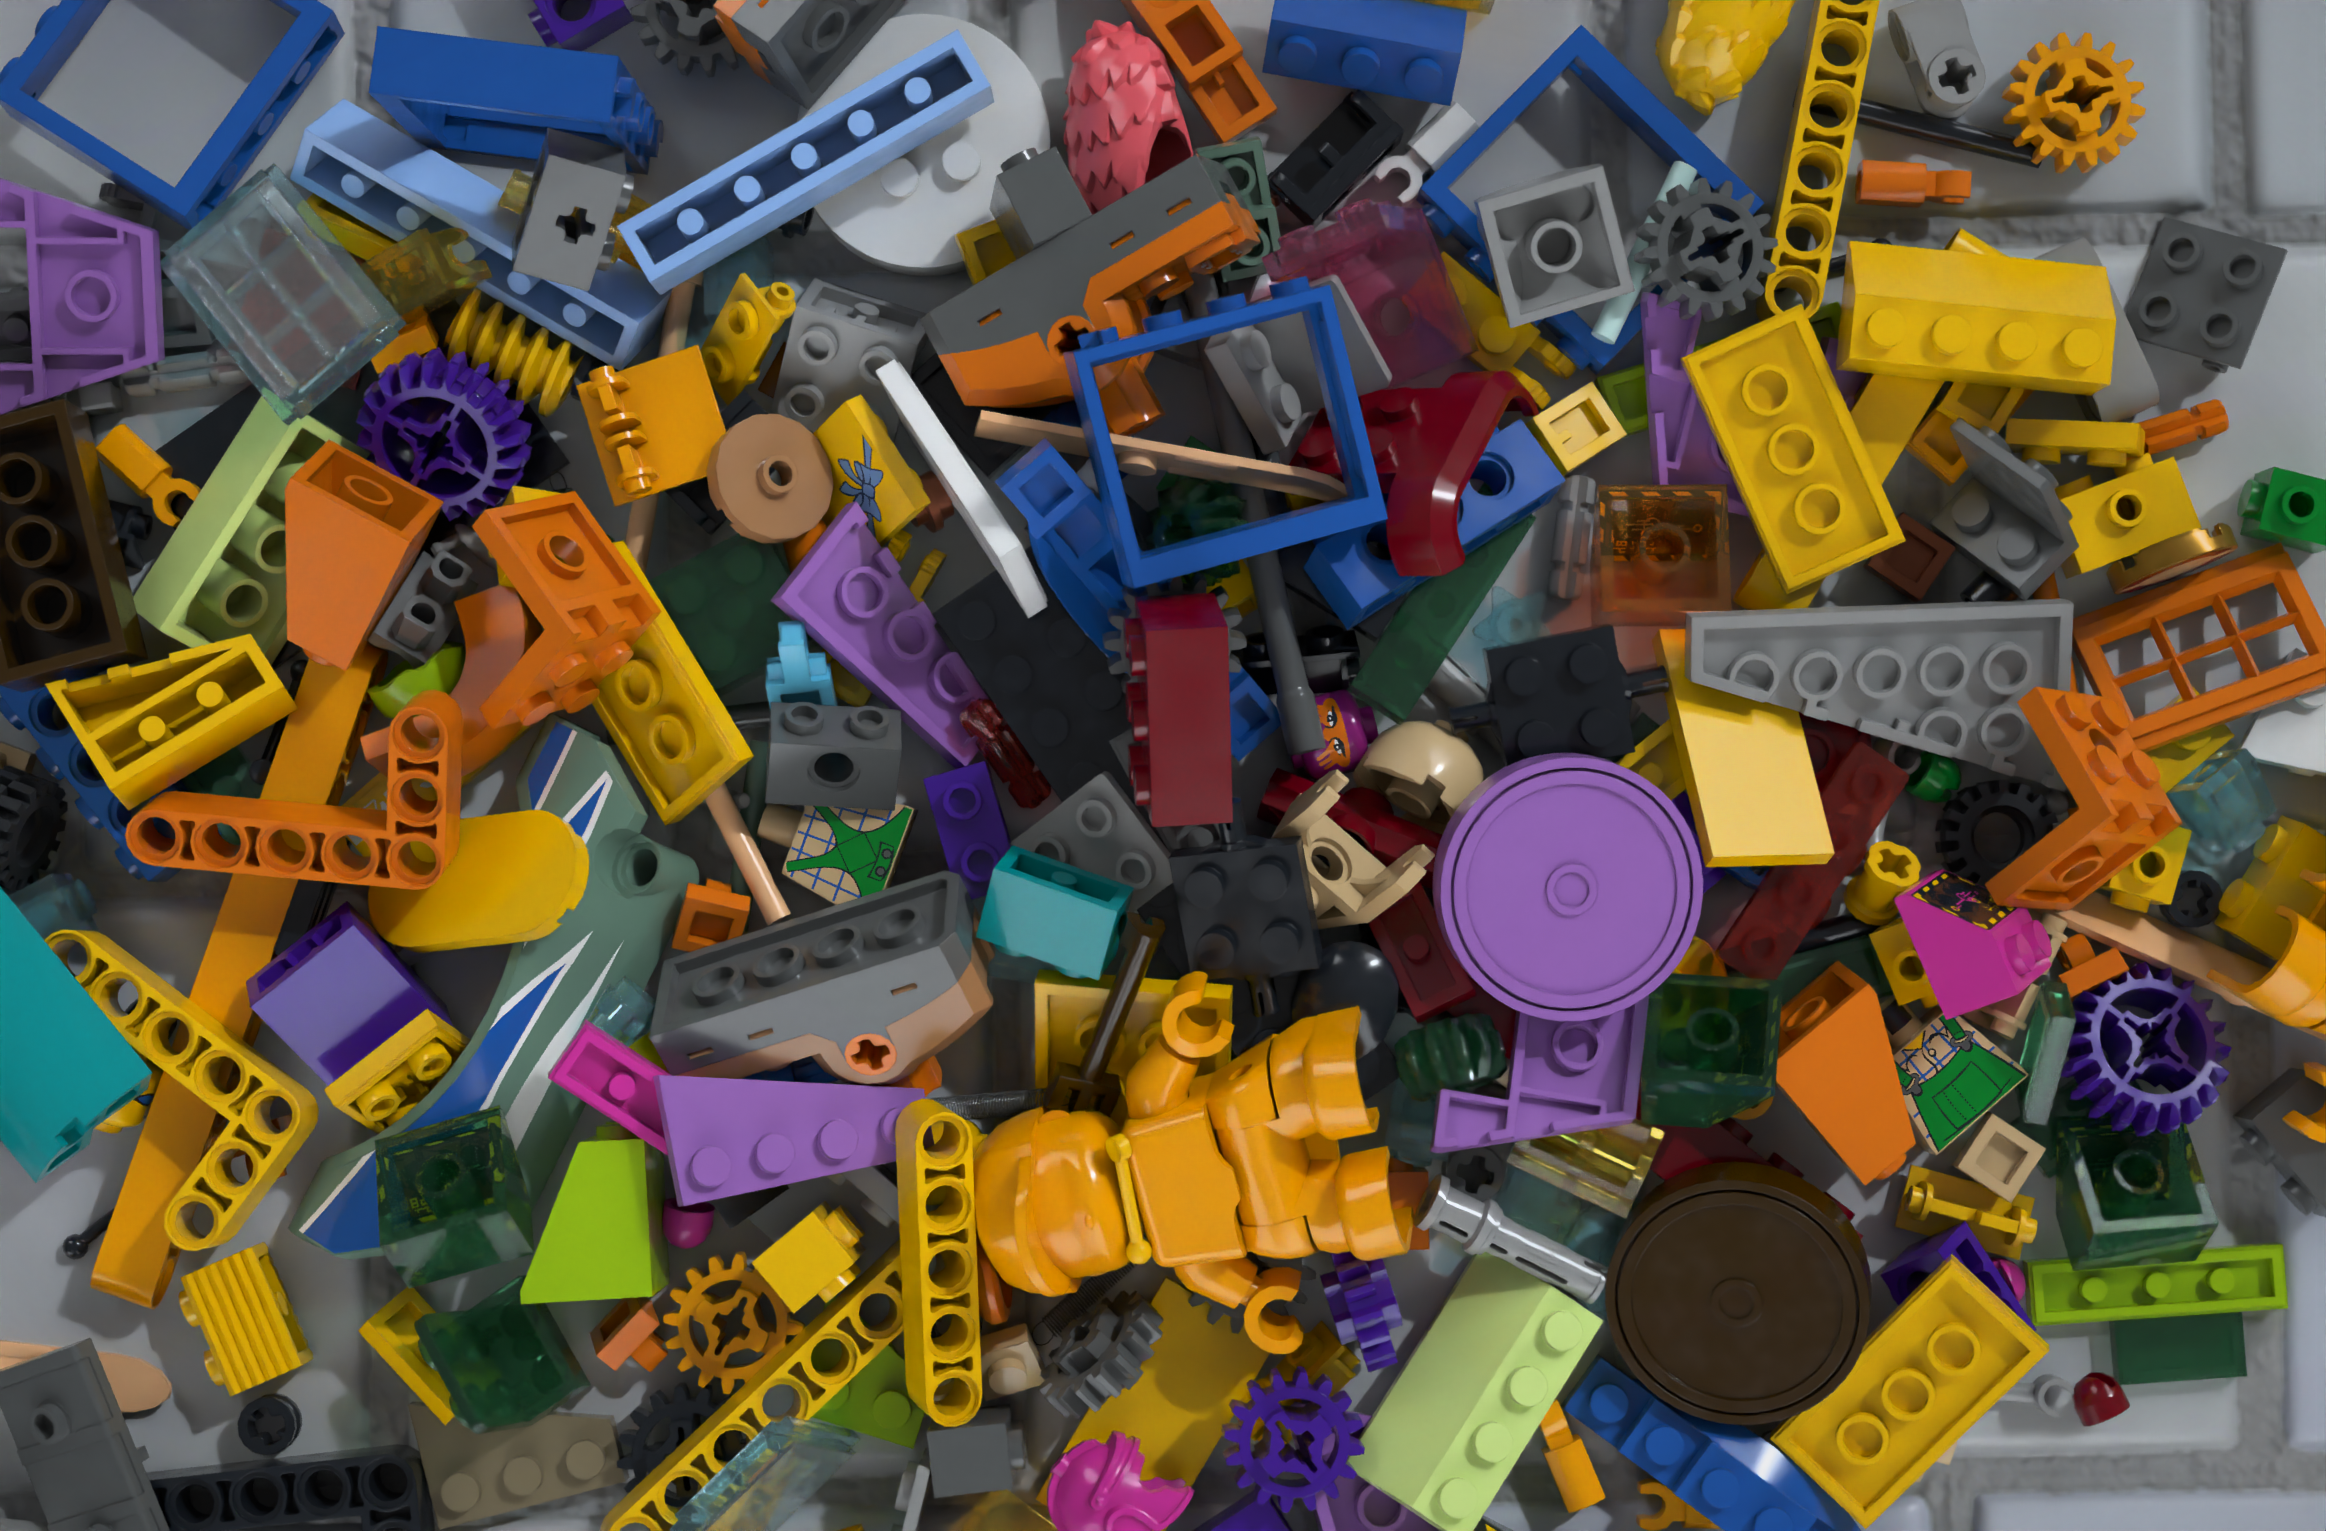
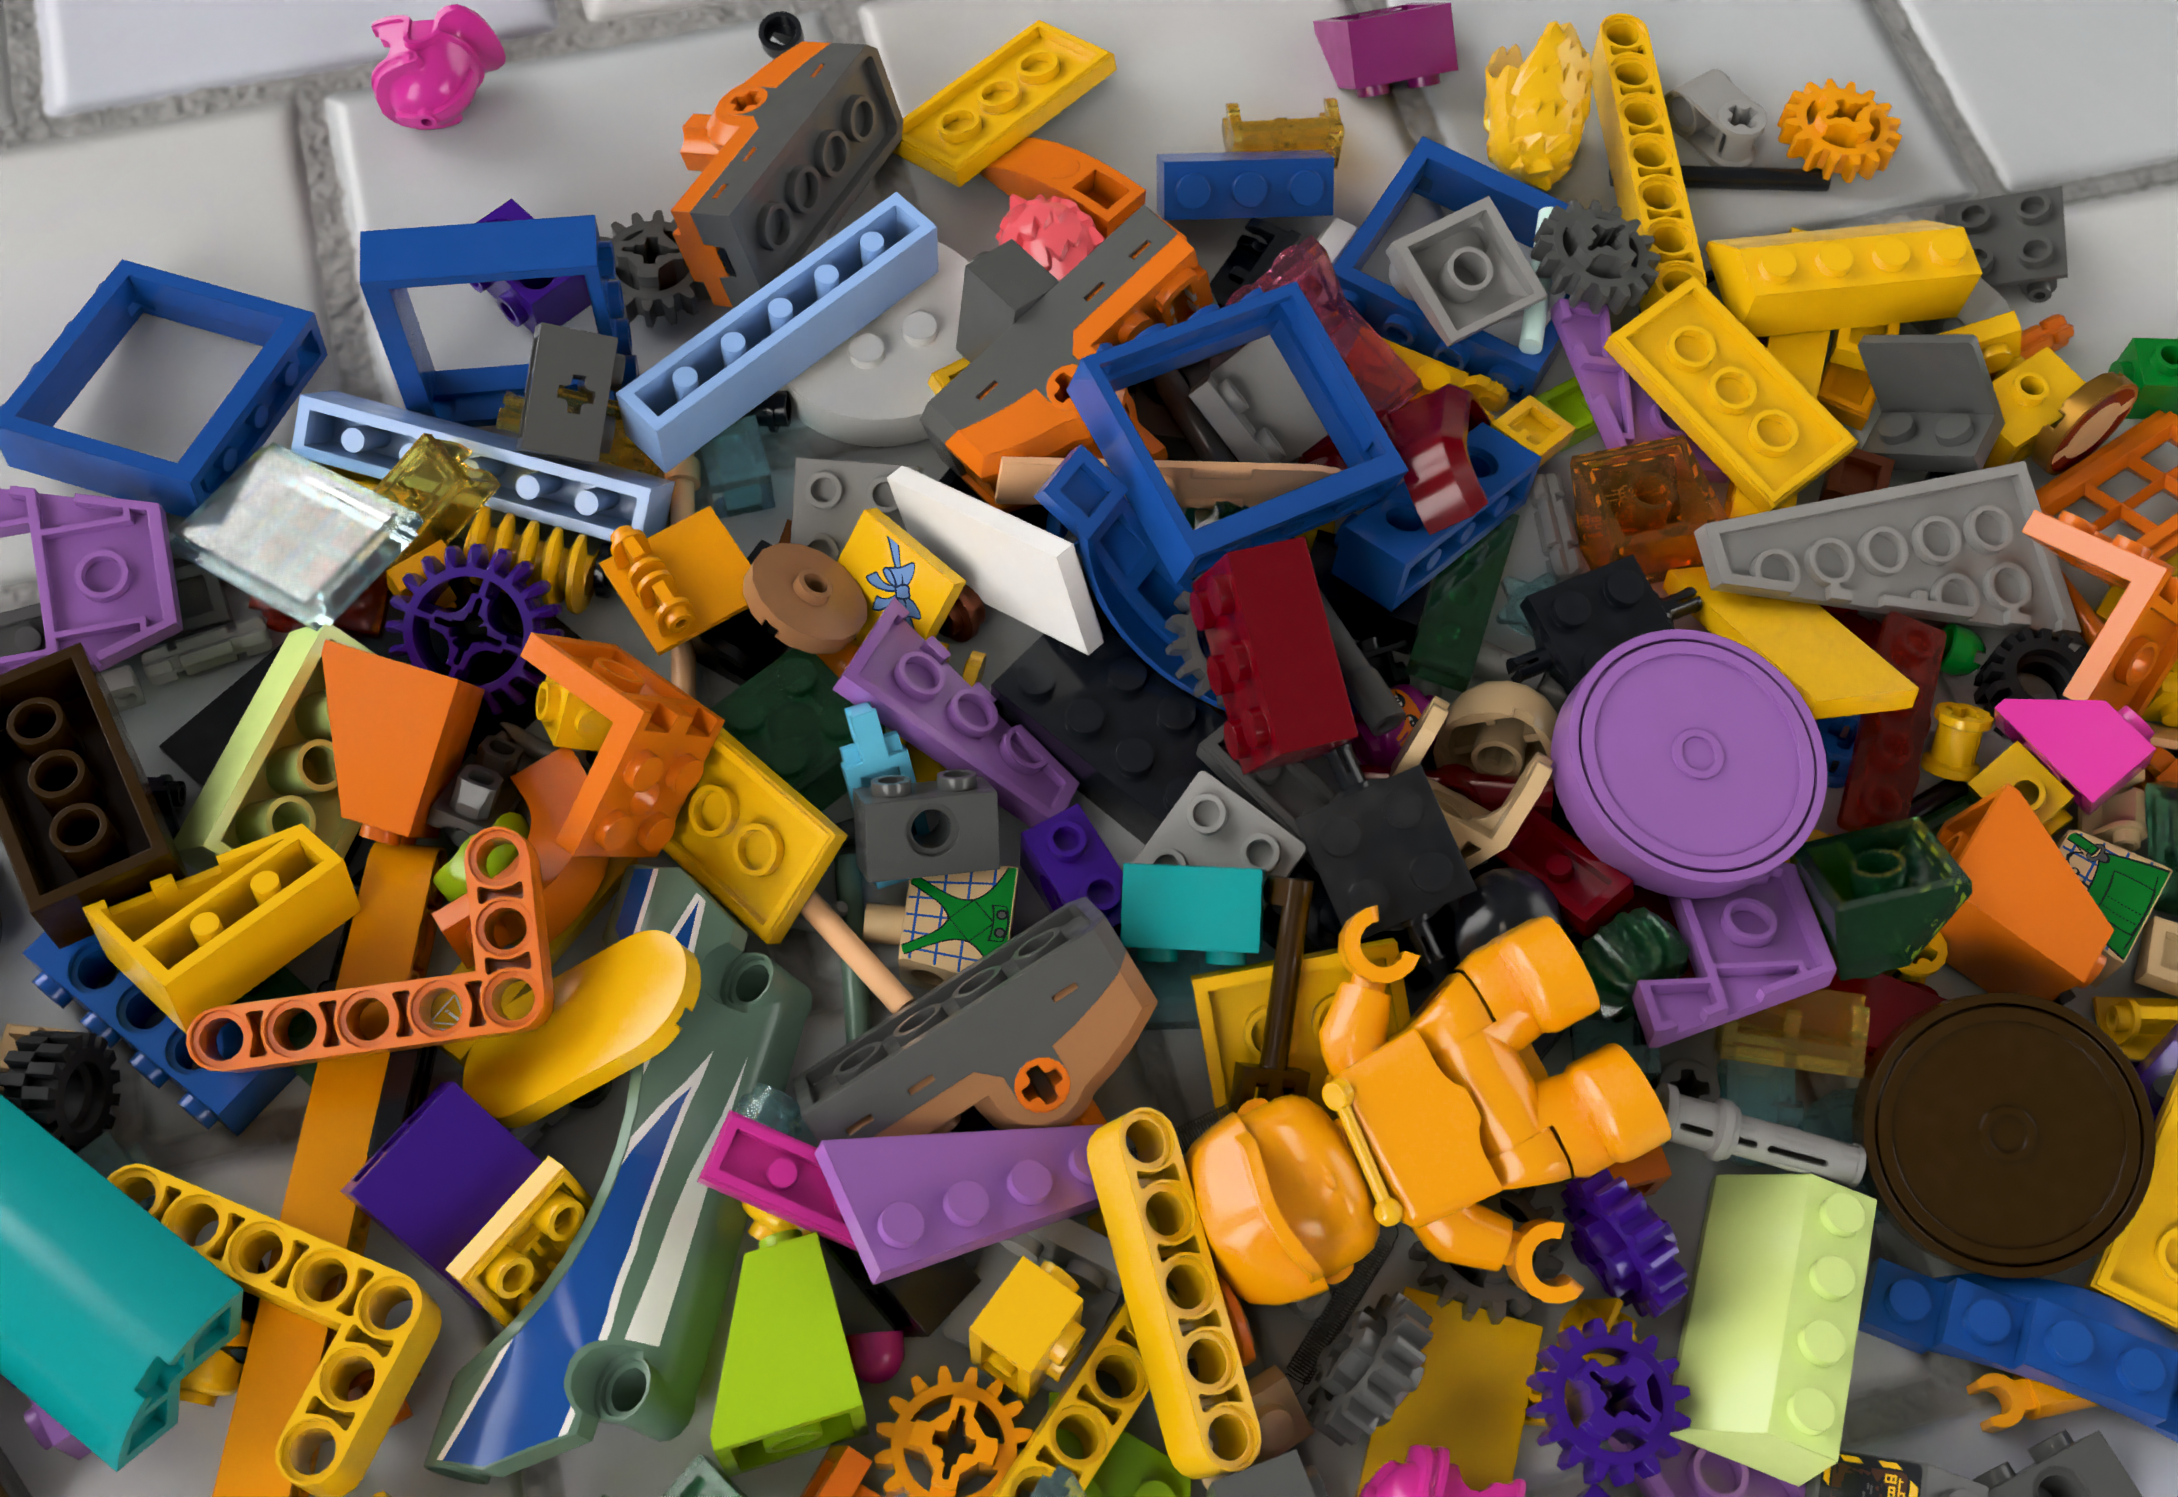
camera: 20 degrees left, 25 degrees down
(144, 471) = (172, 737): light orange bar -> none
(452, 1198) = (612, 1355): clear green slope -> none
(709, 916) = (831, 1021): orange tile -> none
(744, 334) = (752, 480): yellow hinge -> none
(1005, 753) = (1065, 775): clear red axle -> none
(1569, 1462) = (1893, 1379): light orange bar -> none
(1909, 184) = (1735, 212): orange bar -> none

